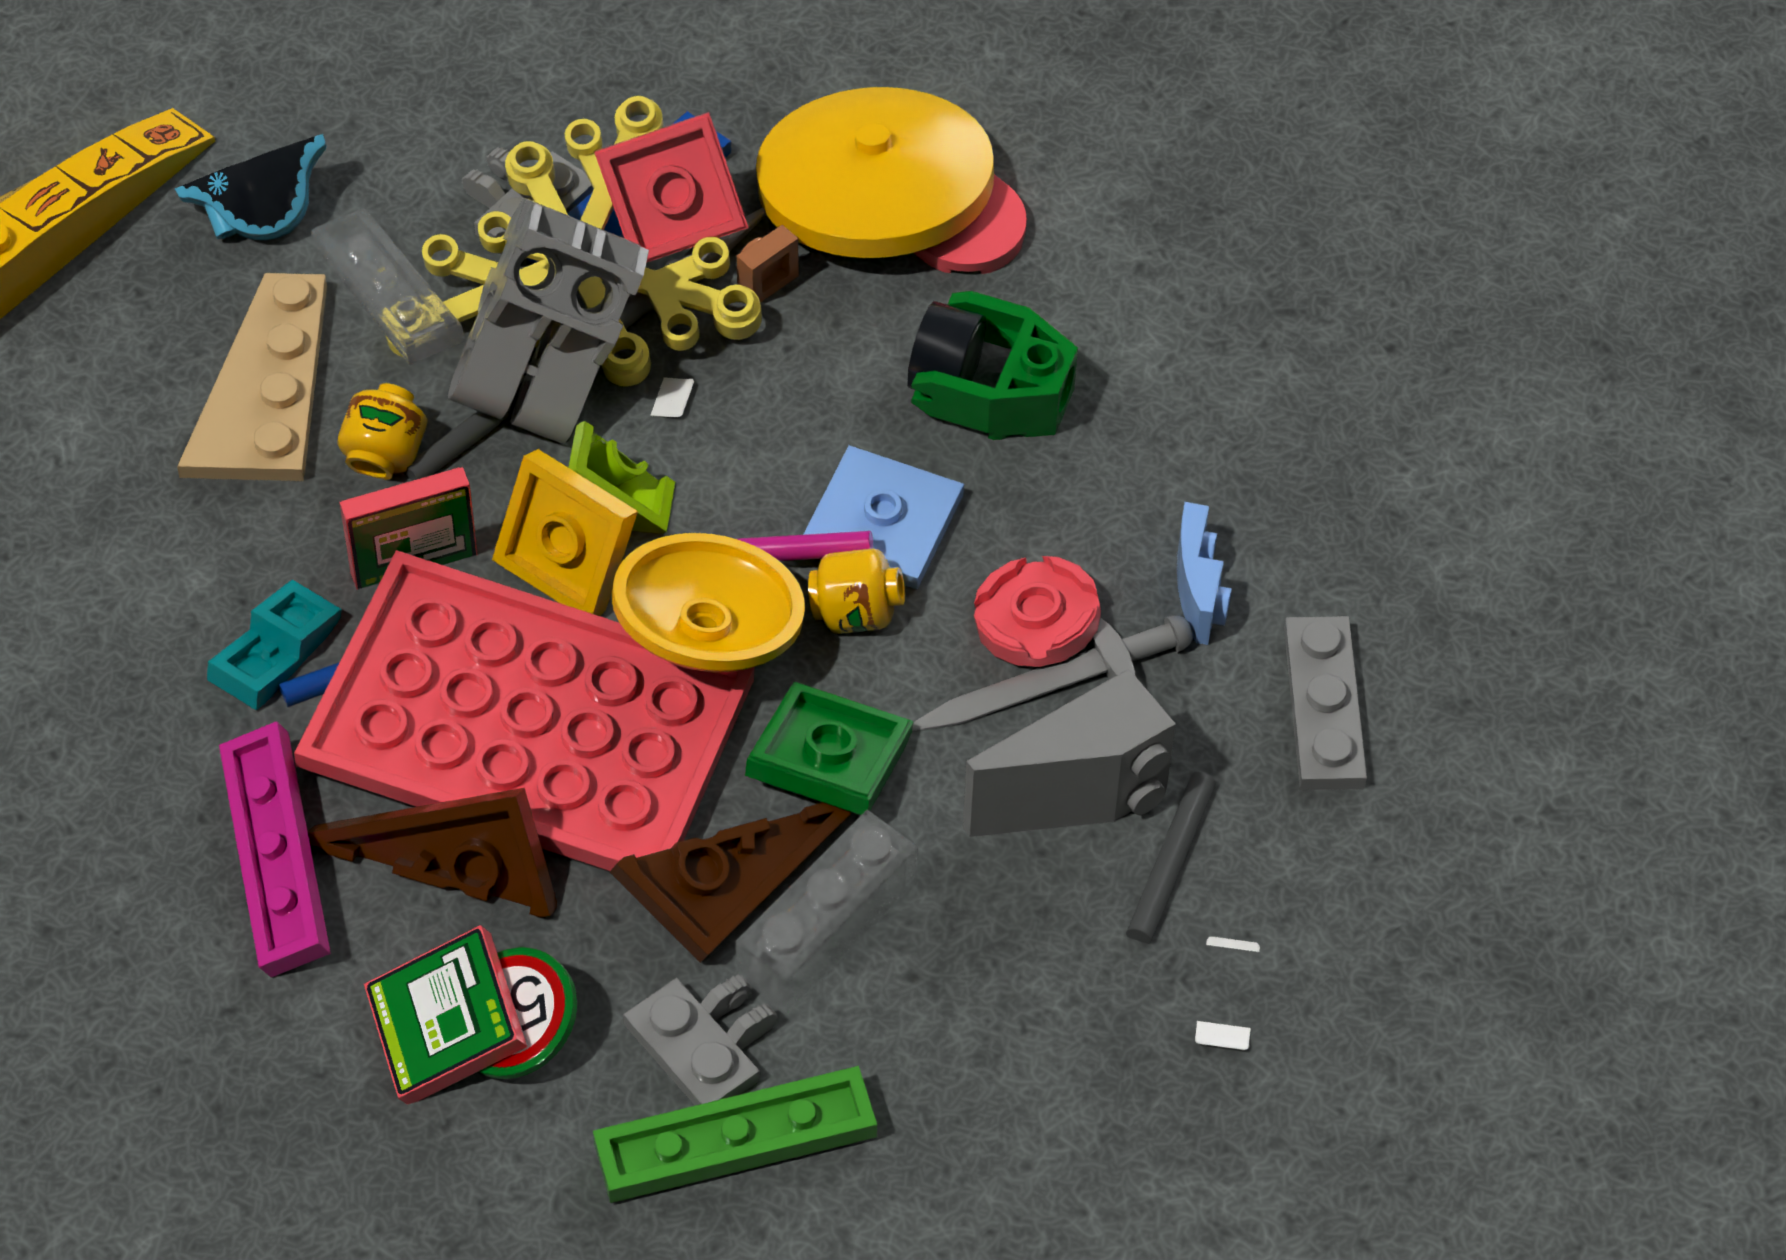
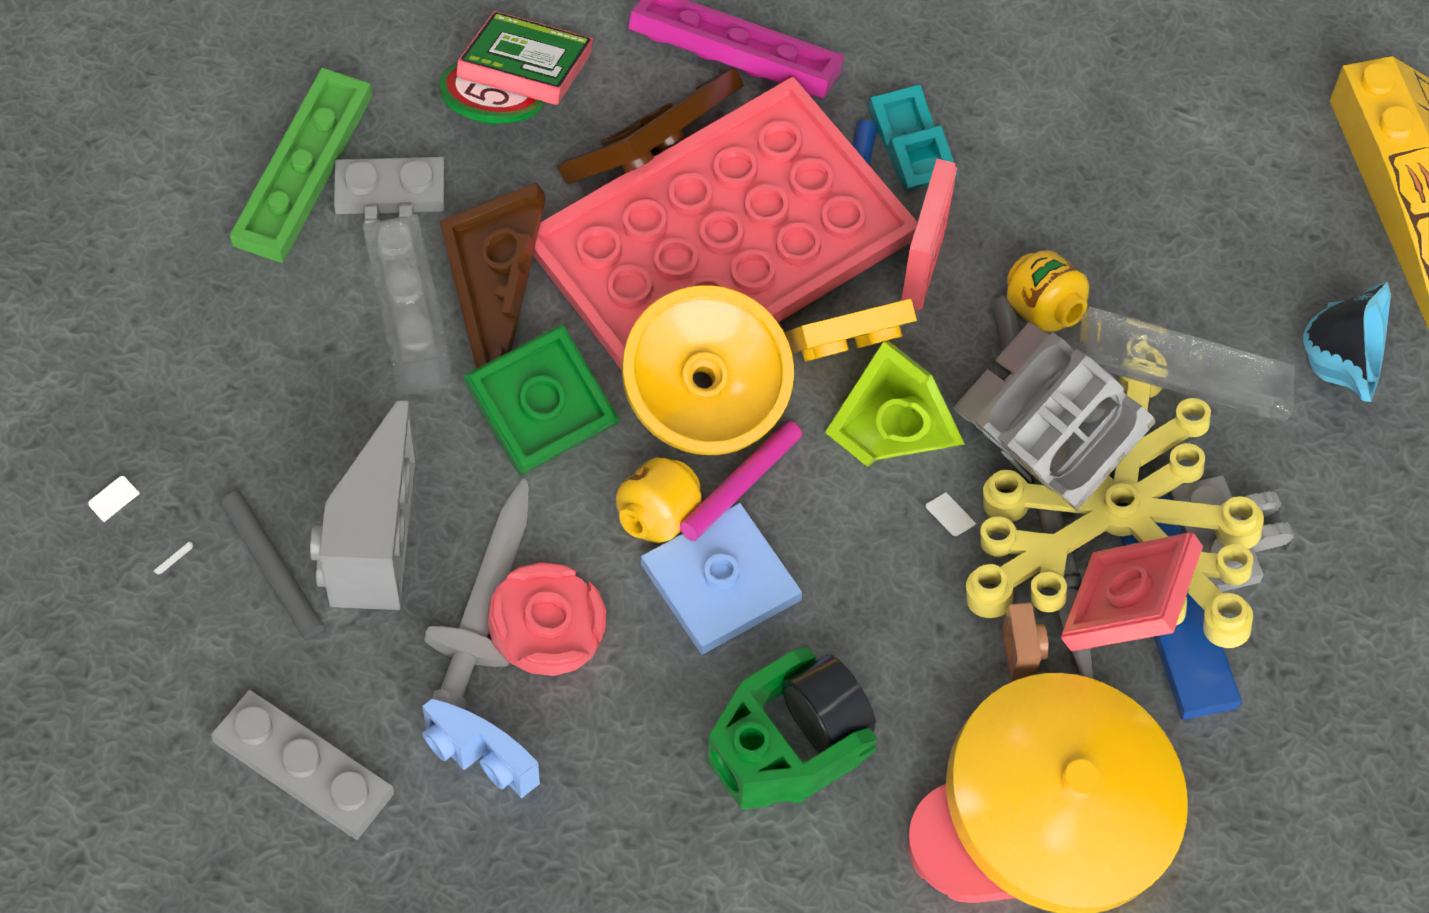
camera: 125 degrees right, 5 degrees up
(265, 391) = (1151, 254): tan wing -> none

